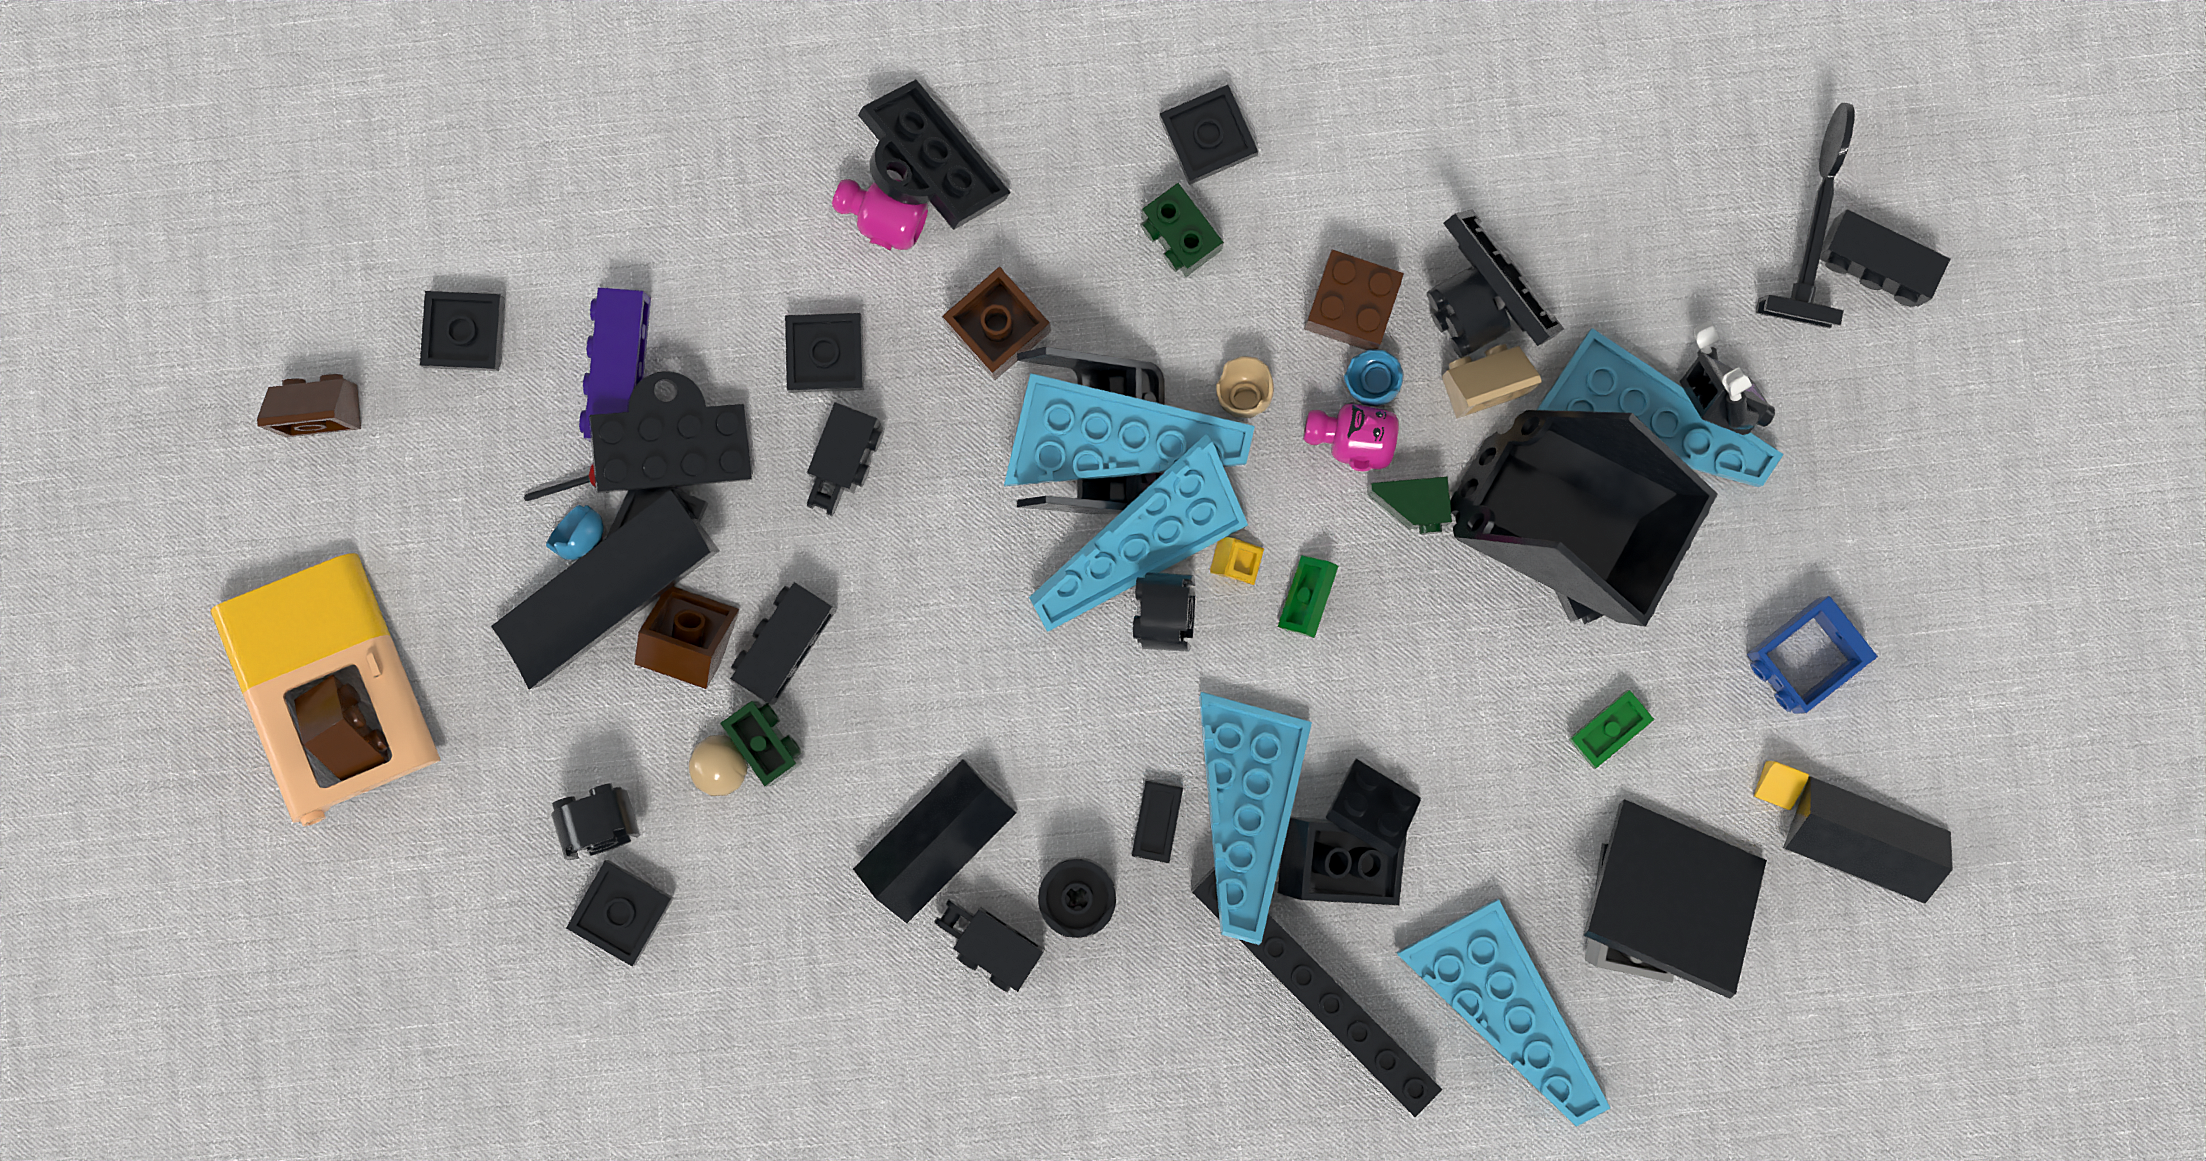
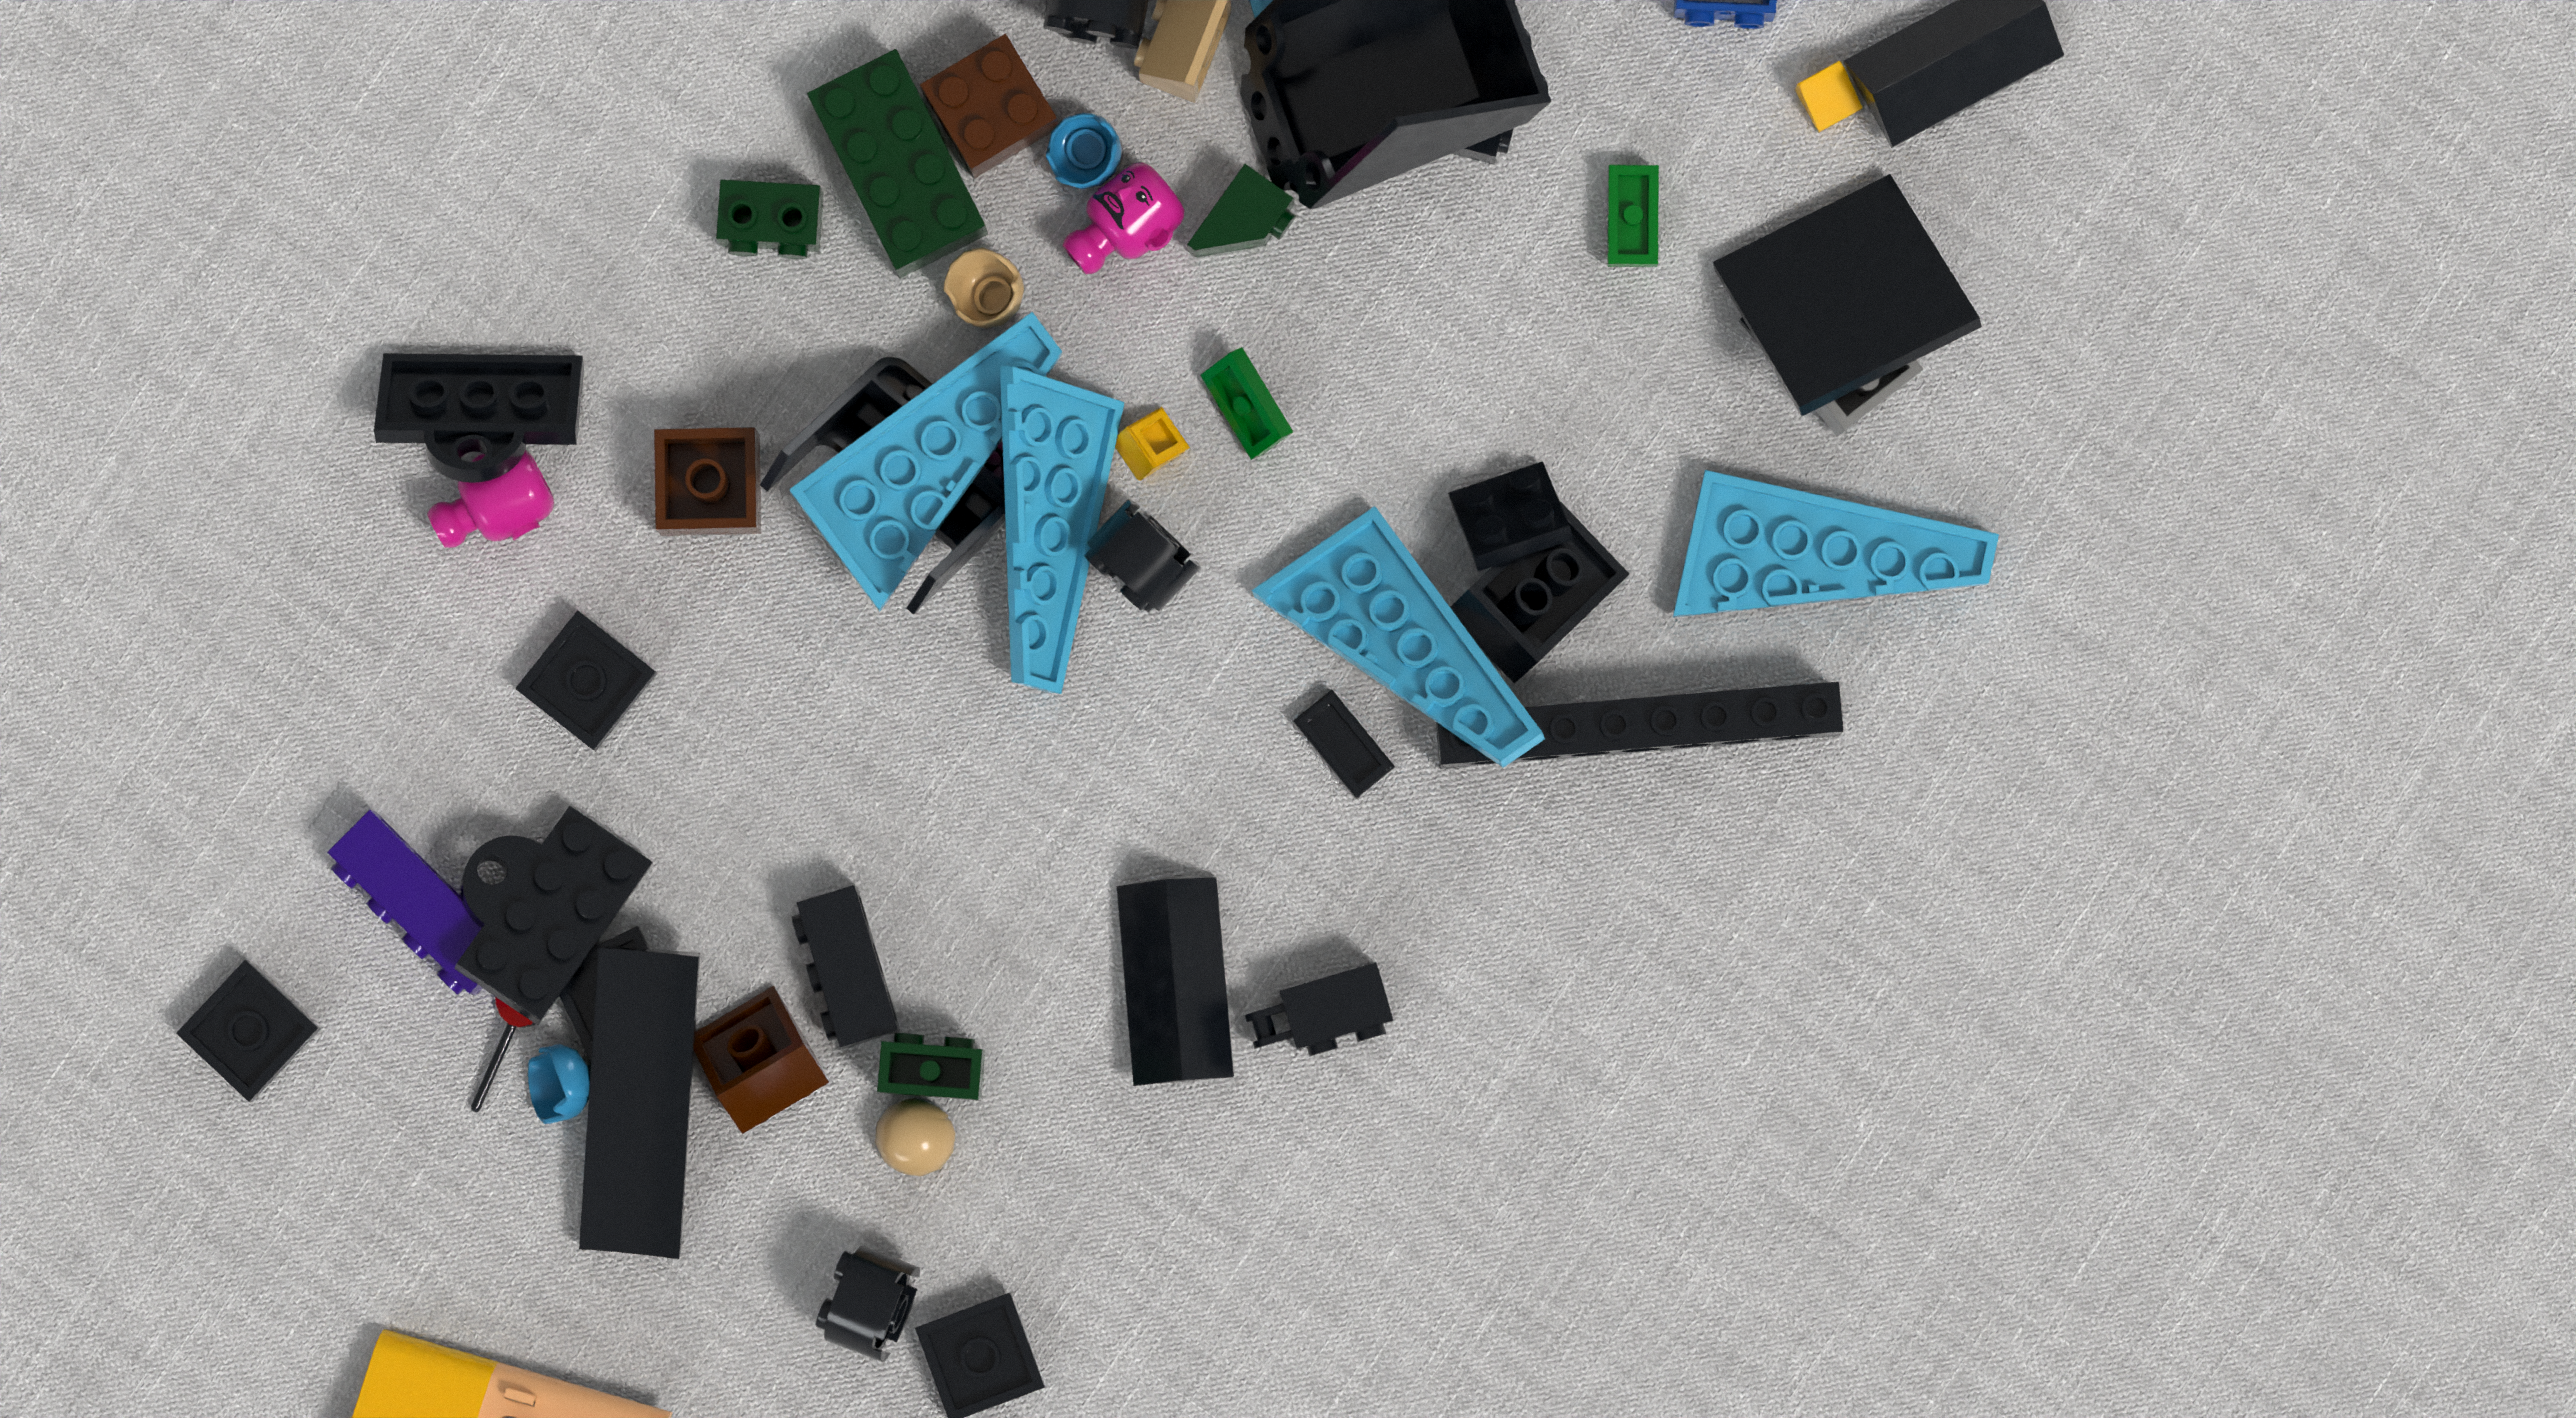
camera: 50 degrees left, 0 degrees up
(310, 407) = (198, 1245): reddish brown slope -> none
(842, 455) = (707, 748): black brick -> none
(1080, 919) = (1367, 860): black brick -> none
(1208, 134) = (694, 106): black plate -> none
(1274, 276) = (897, 163): none -> dark green brick

